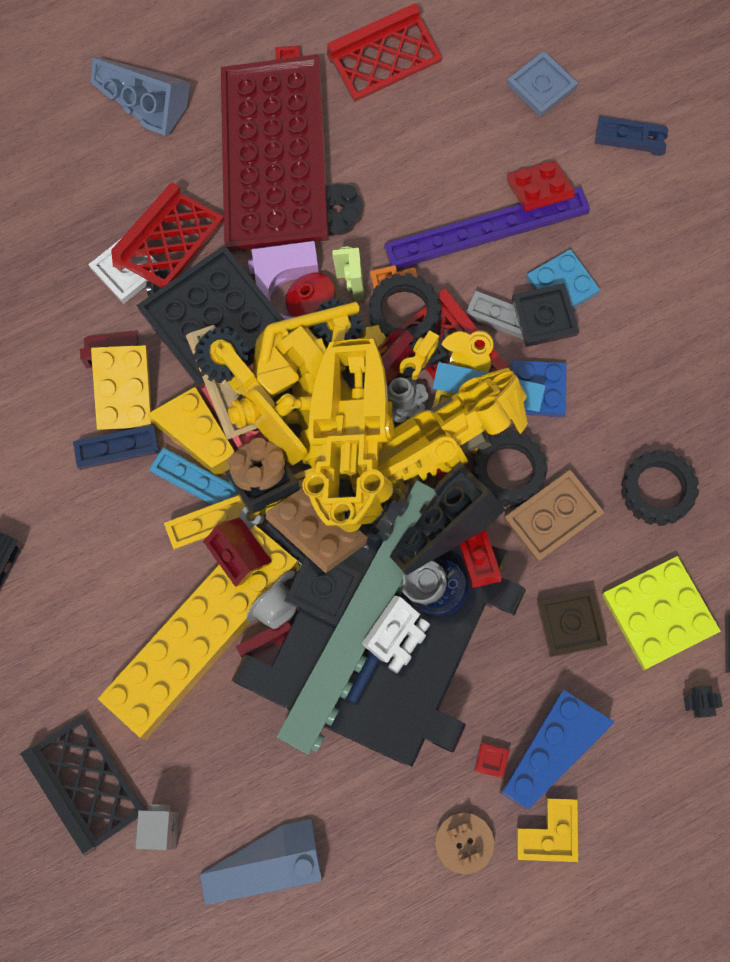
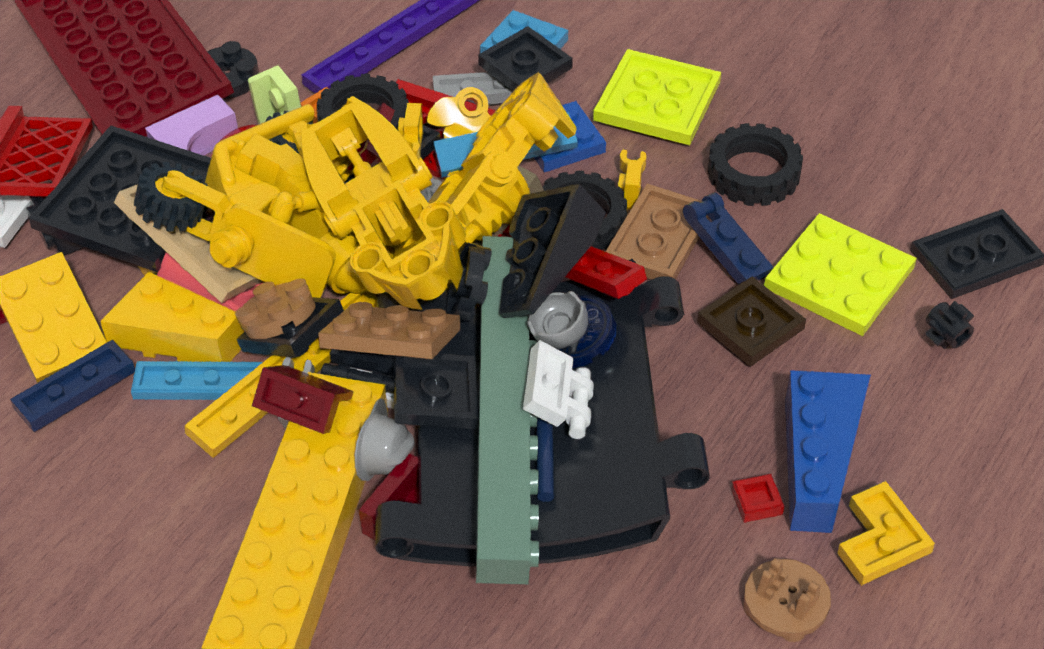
camera: 30 degrees left, 25 degrees down
(559, 462) = (631, 181): none -> yellow plate
(595, 549) = (726, 239): none -> dark blue plate
(628, 388) = (657, 96): none -> neon yellow plate

